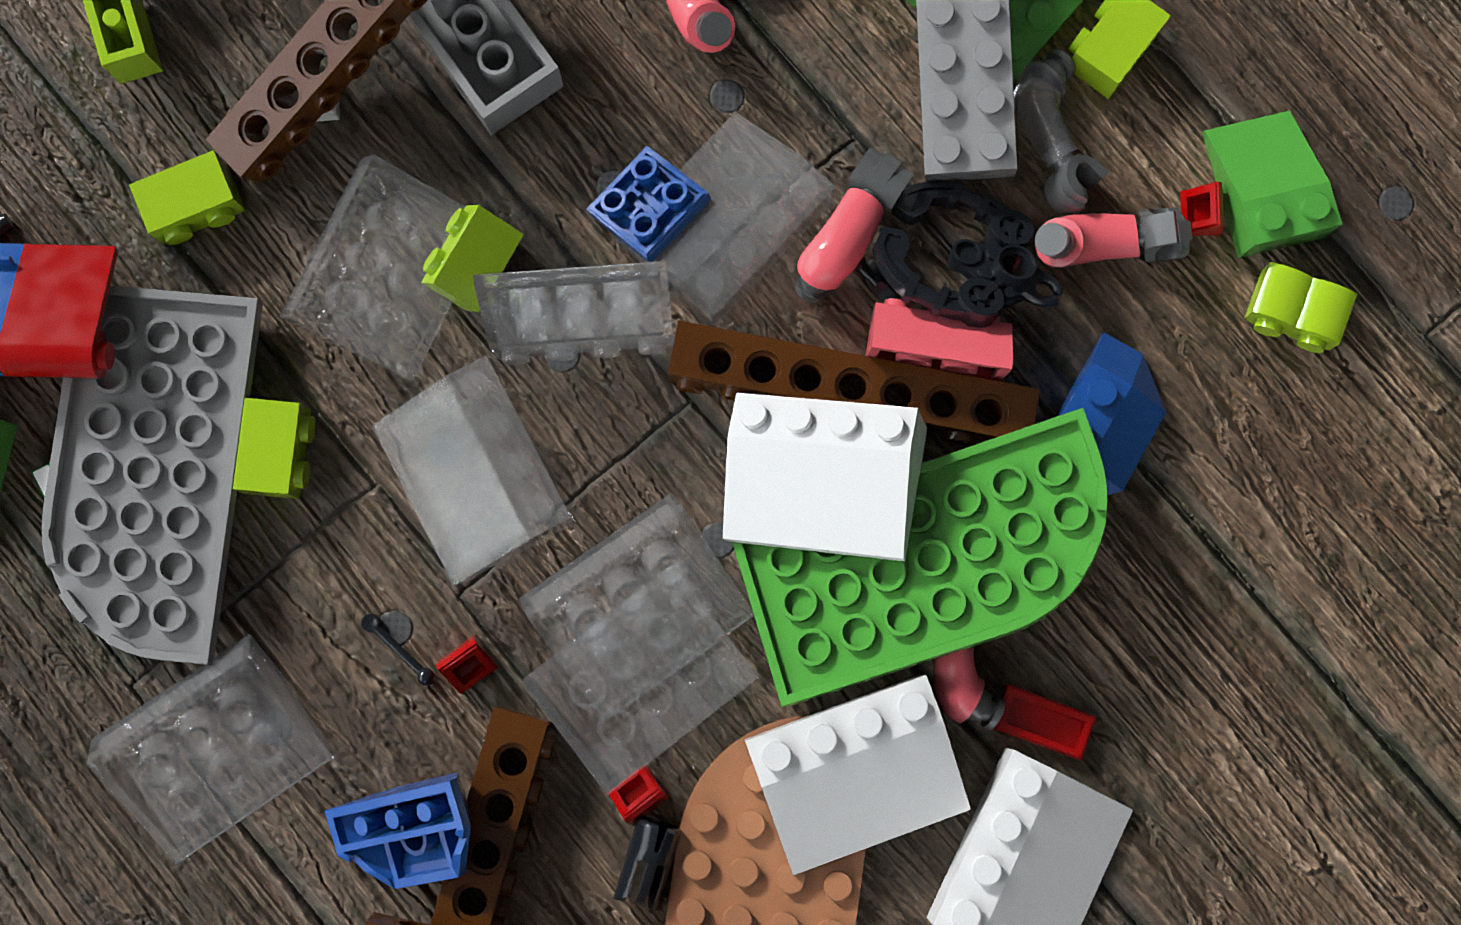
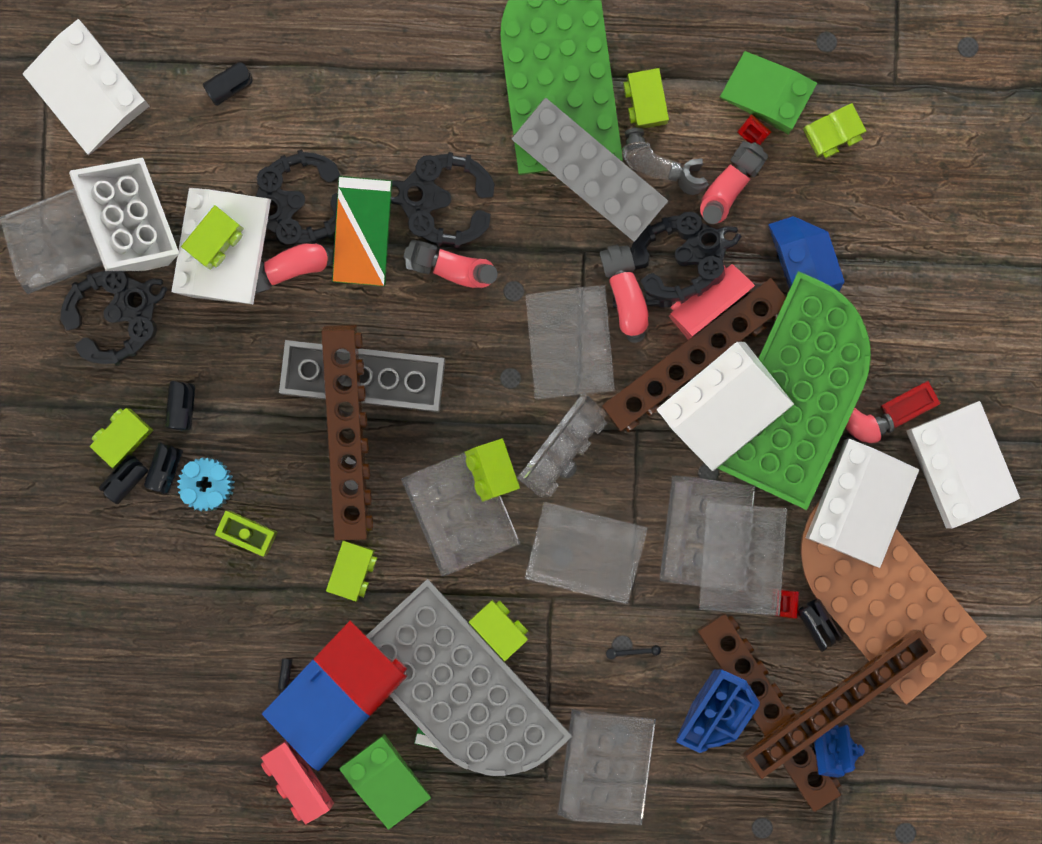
camera: 45 degrees left, 5 degrees up
(466, 664) = (666, 627): red slope -> none
(648, 204) = (535, 371): blue tile -> none

